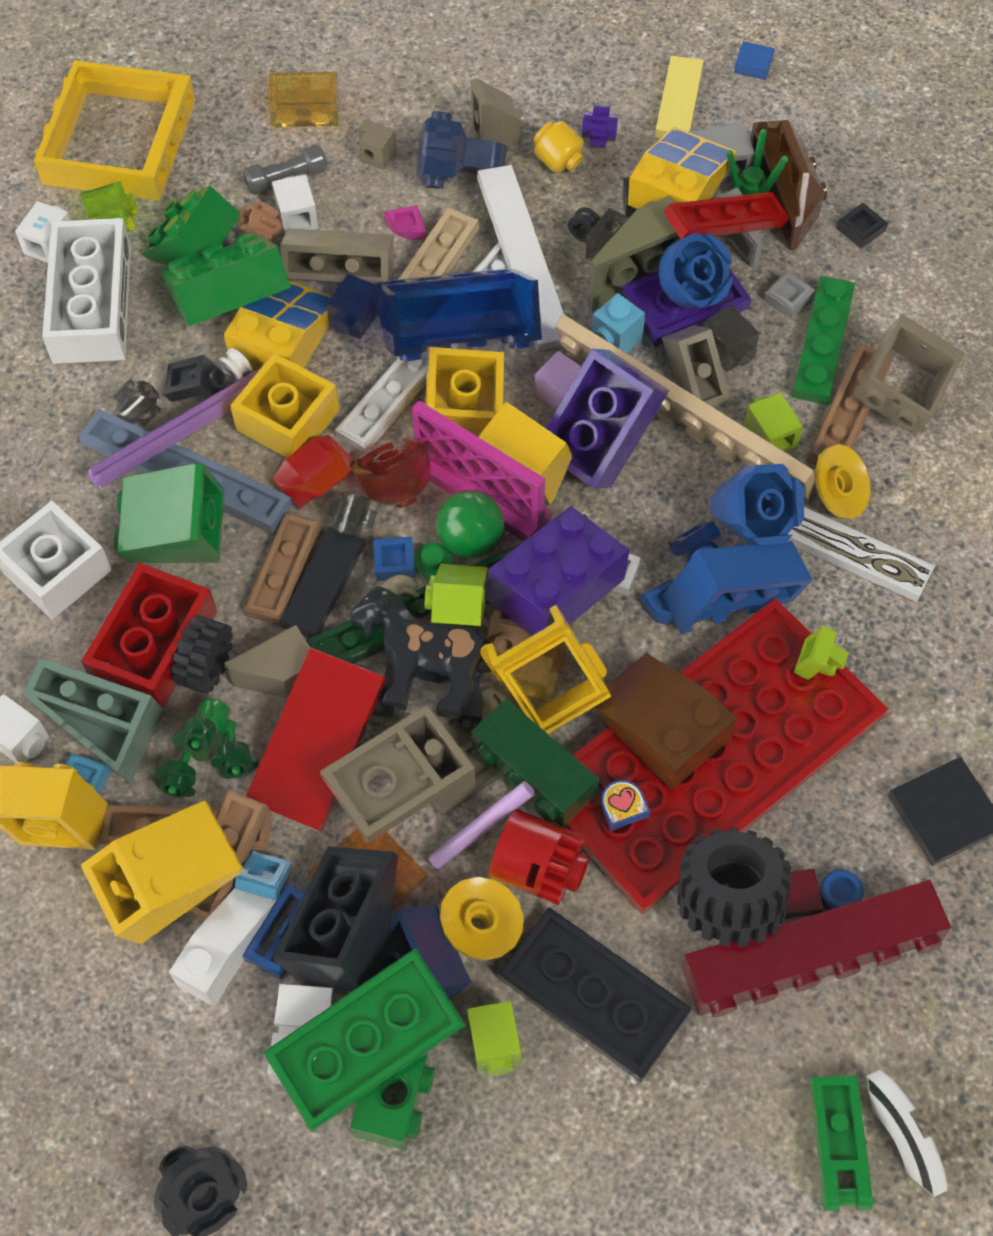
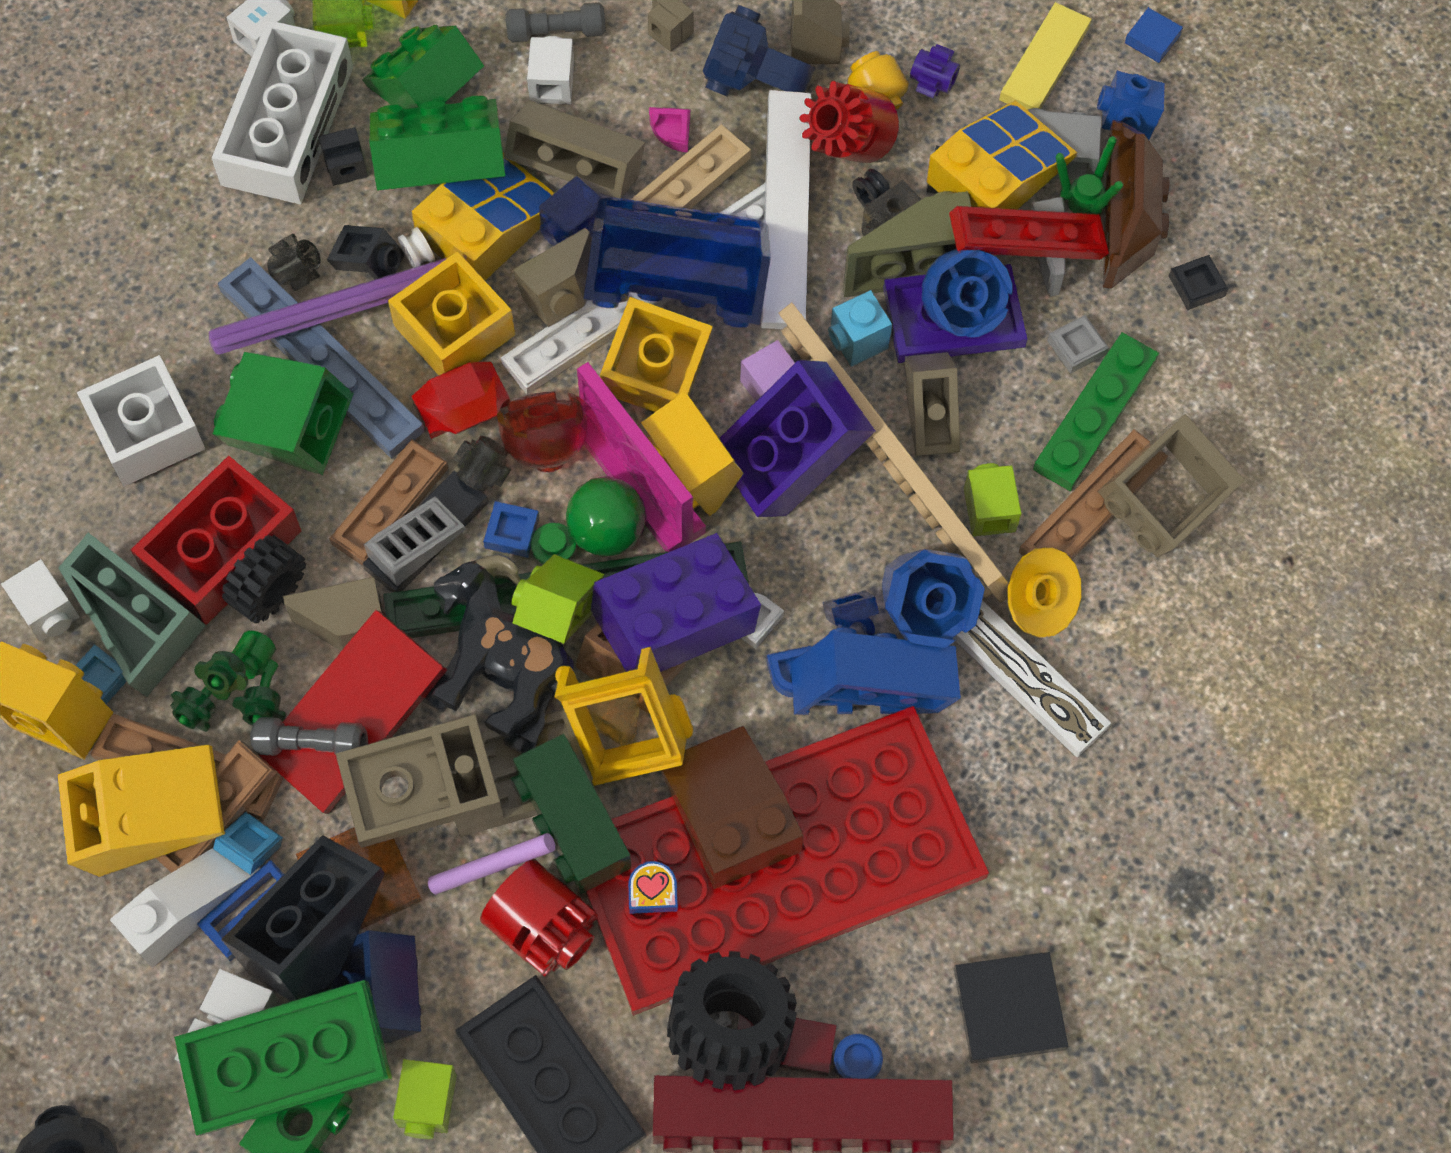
camera: 15 degrees right, 5 degrees up
(148, 312) = (343, 156): none -> black piece
(254, 778) = (271, 736): none -> dark grey piece
(260, 220) = (503, 82): nougat gear -> none
(313, 615) = (400, 569): none -> light grey slope
(359, 357) = (556, 278): none -> dark tan slope
(491, 904) = (473, 948): yellow dish -> none
(552, 176) = (851, 123): none -> red gear
(733, 337) = (984, 380): clear smoke brick -> none
(760, 104) = (1133, 101): none -> blue brick
(820, 654) = (932, 789): lime tile -> none

